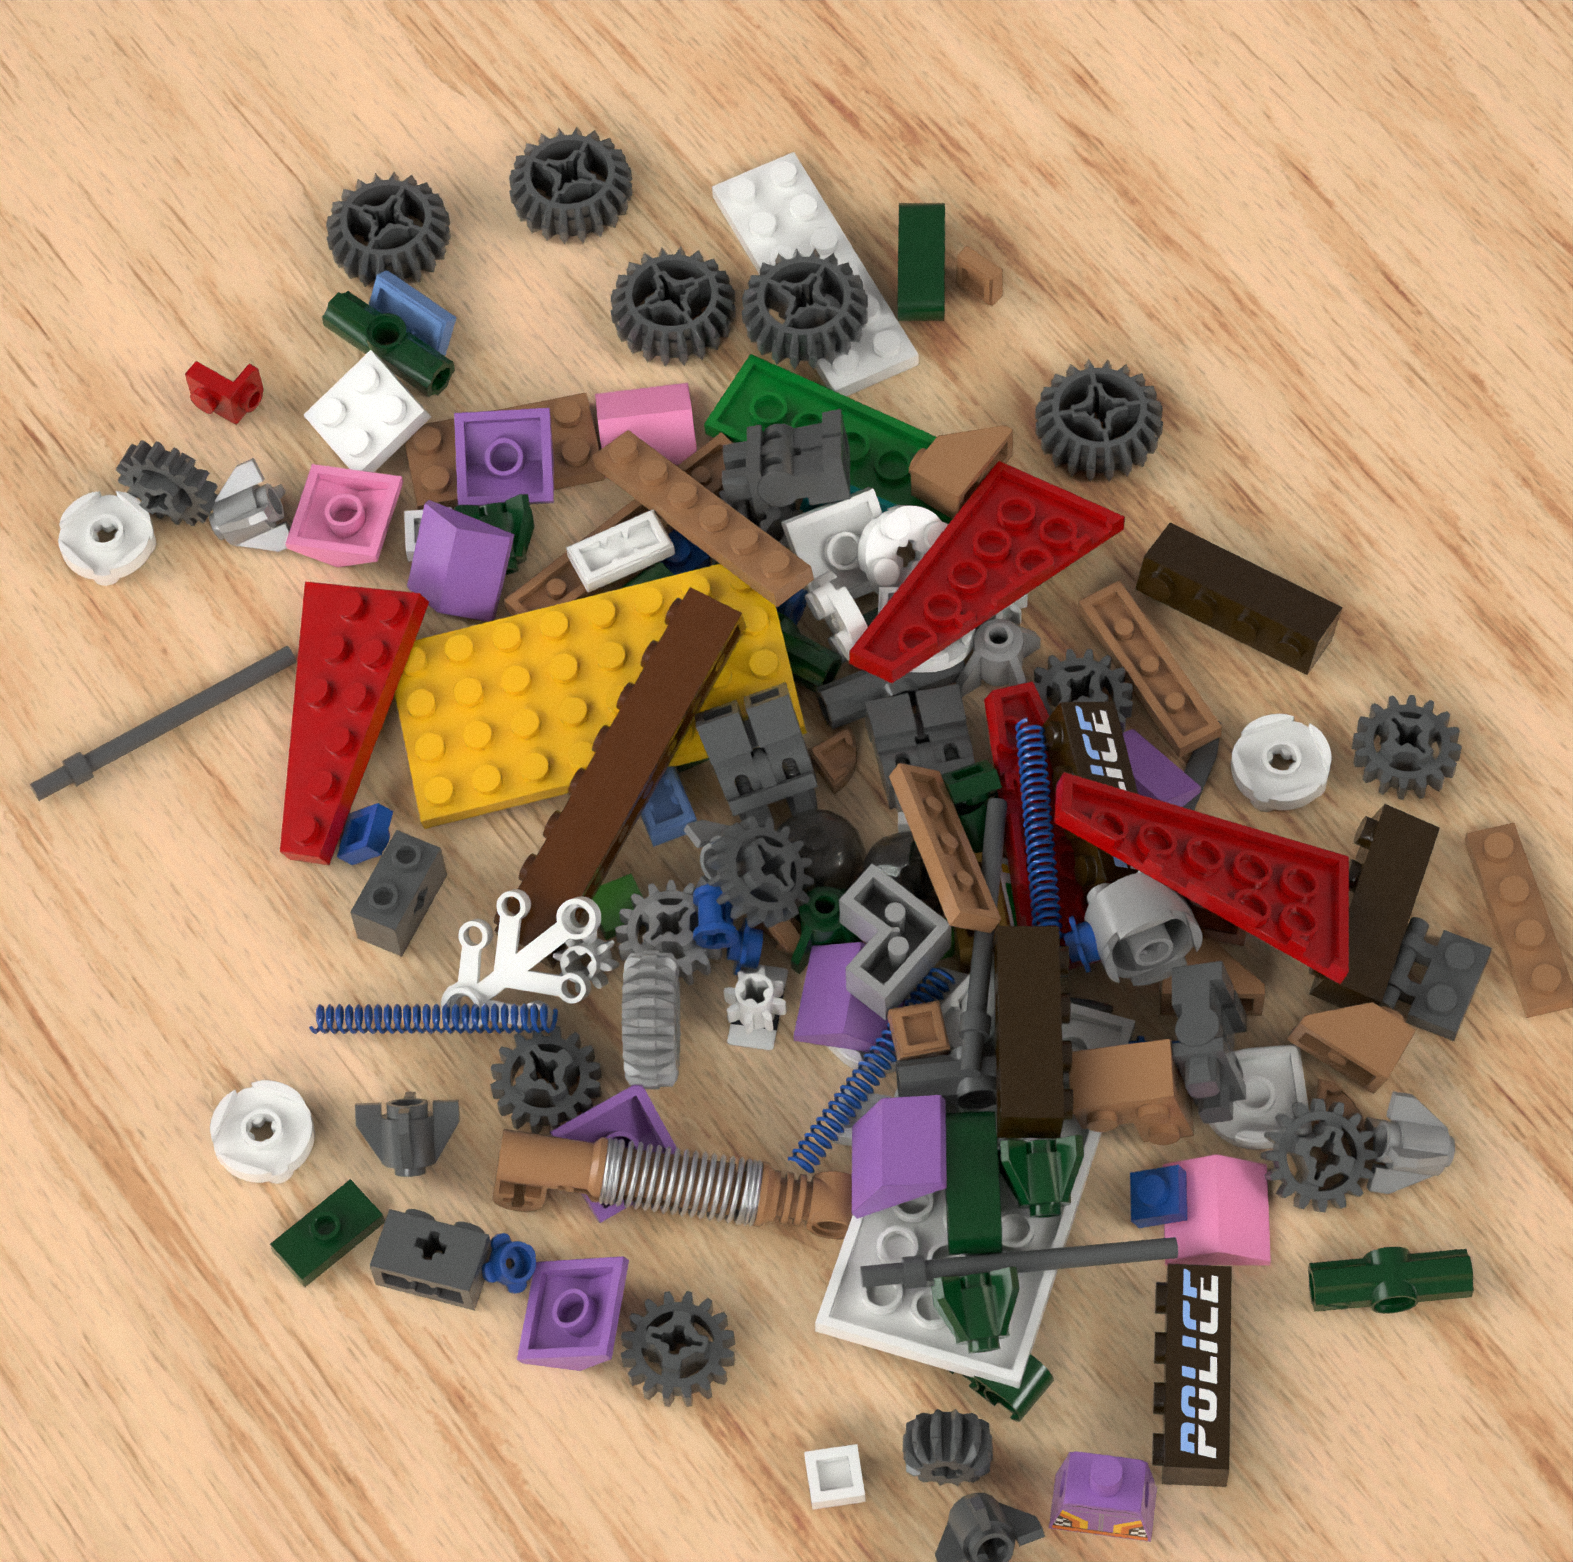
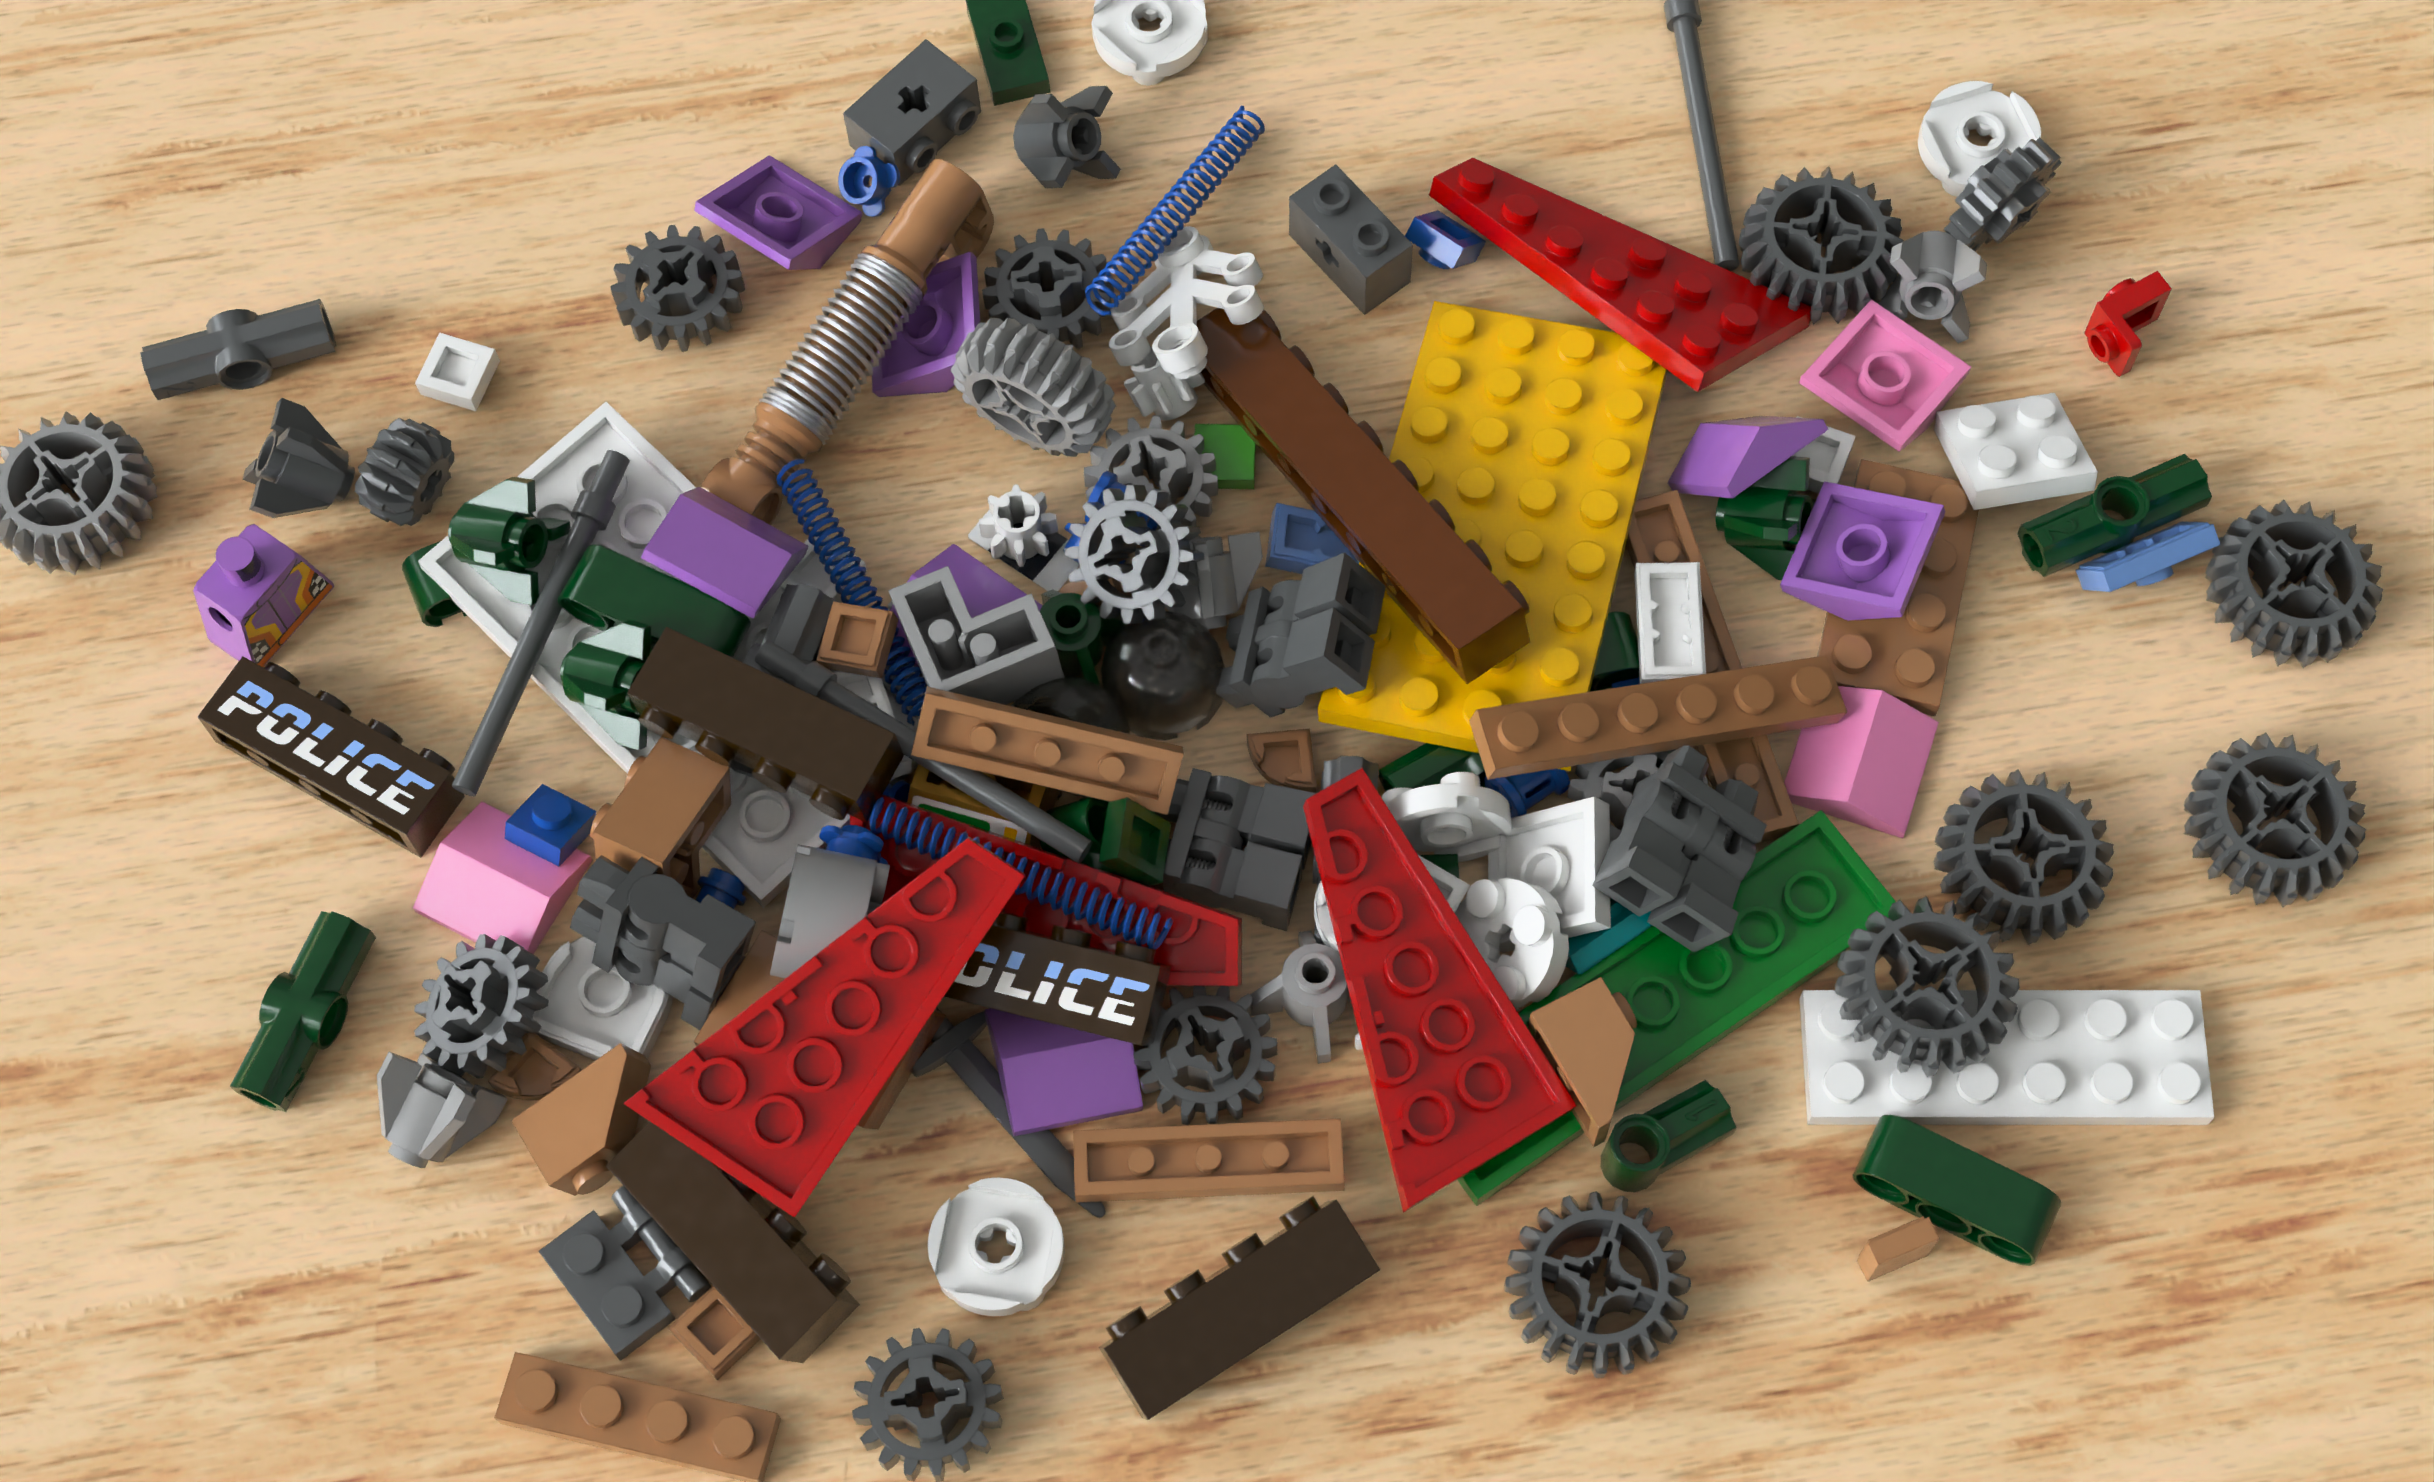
camera: 115 degrees right, 5 degrees up
(224, 608) = (1854, 229): none -> dark grey gear
(962, 412) = (1668, 1134): none -> dark green piece
(1439, 903) = (714, 1333): none -> medium nougat tile

